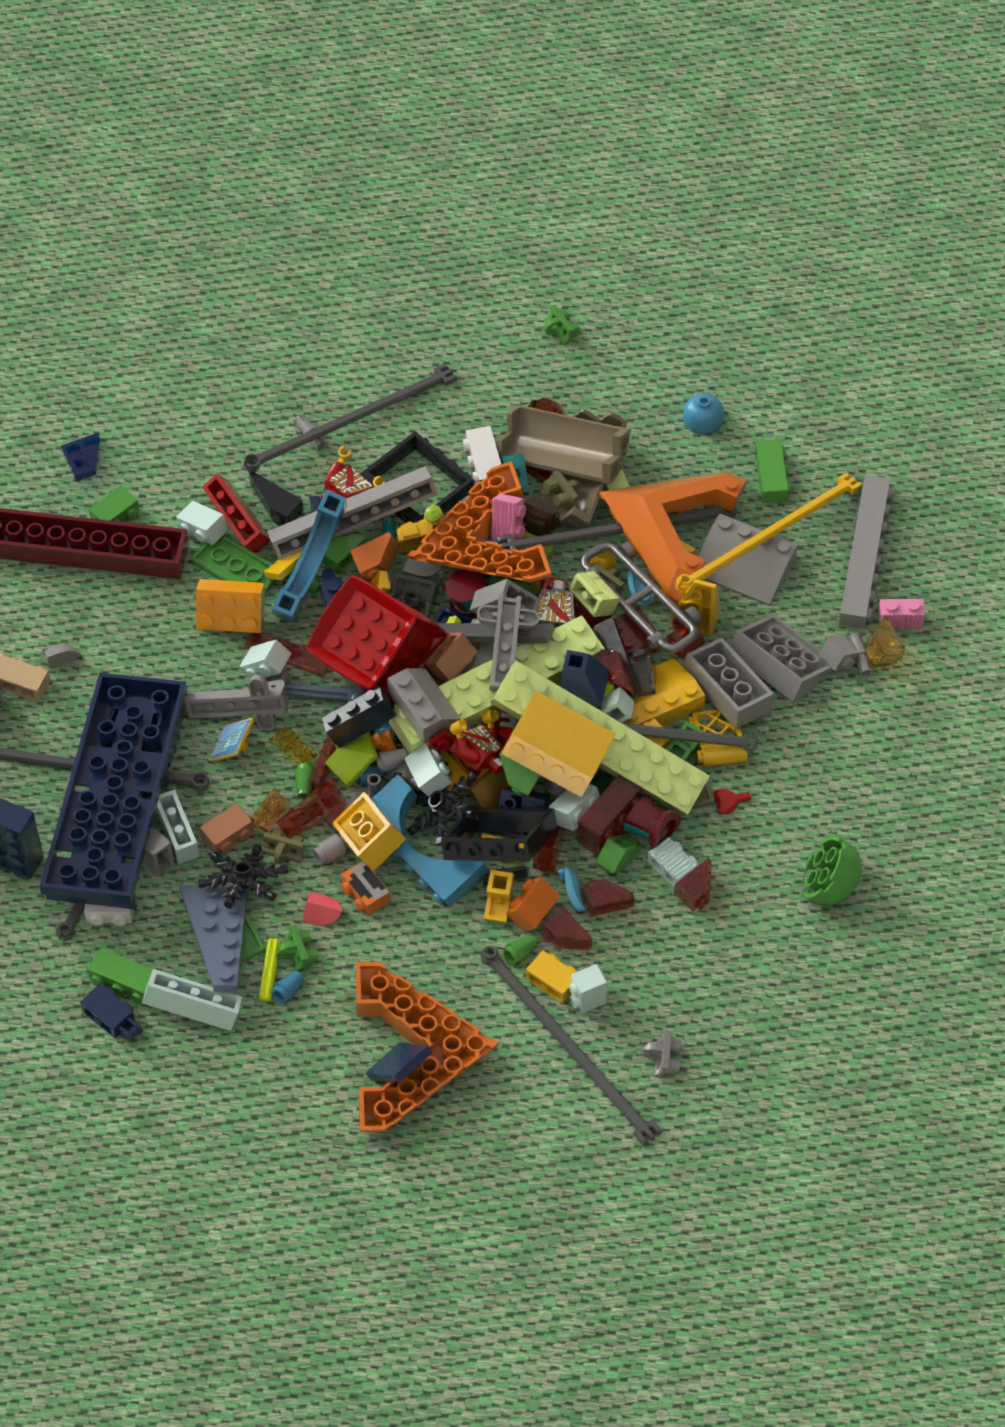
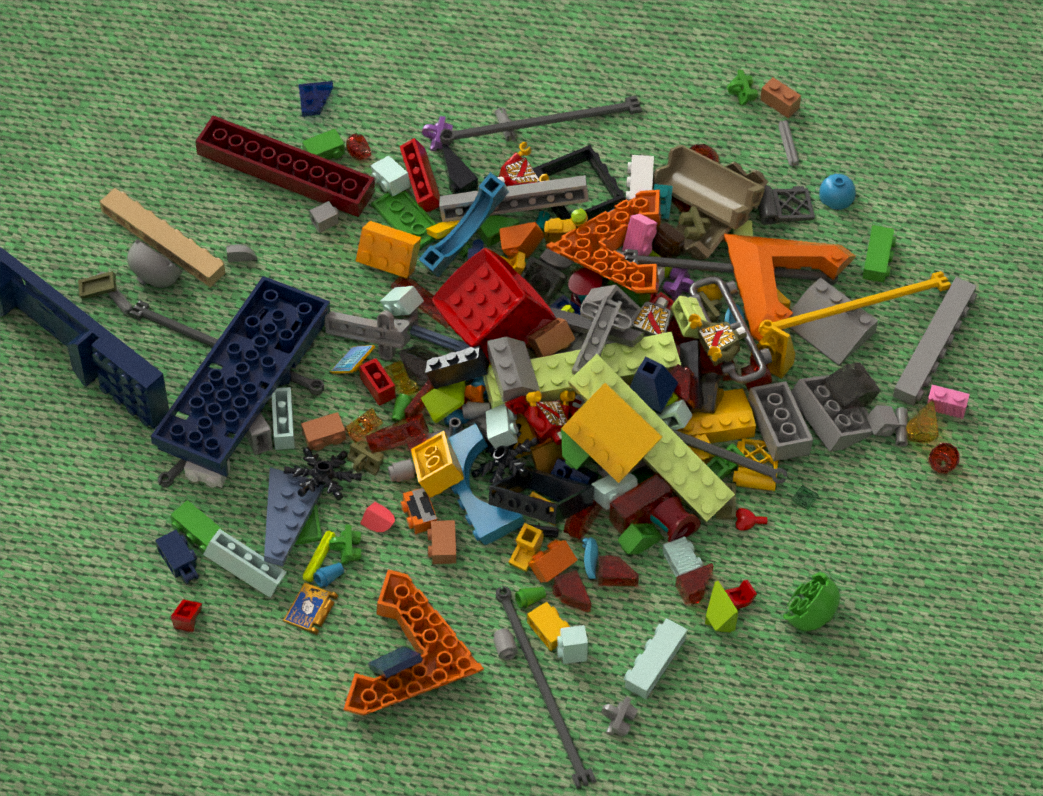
camera: 15 degrees right, 0 degrees up
(142, 588) = (324, 216): none -> light grey brick
(144, 1076) = (185, 615): none -> red slope
(153, 500) = (358, 147): none -> clear red hair
(237, 461) = (435, 134): none -> medium lavender hips
(268, 757) = (377, 381): none -> red brick
(280, 1030) = (310, 608): none -> piece
(308, 725) = (415, 363): none -> clear smoke slope
(403, 915) = (443, 542): none -> nougat brick
(511, 1009) = (505, 644): none -> light grey brick
(569, 560) = (680, 285): none -> medium lavender hips
(606, 325) = (780, 97): none -> nougat brick
(631, 373) = (788, 143): none -> light grey axle
(635, 610) = (718, 339): none -> torso
(639, 454) = (770, 209): none -> dark grey piece
(681, 979) = (655, 658): none -> light aqua brick
(736, 907) = (721, 610): none -> lime slope
(750, 886) = (742, 595): none -> red bracket
(782, 759) = (805, 497): none -> clear green tile
(793, 624) = (852, 386): none -> clear smoke slope
(920, 670) = (944, 452): none -> clear red hair

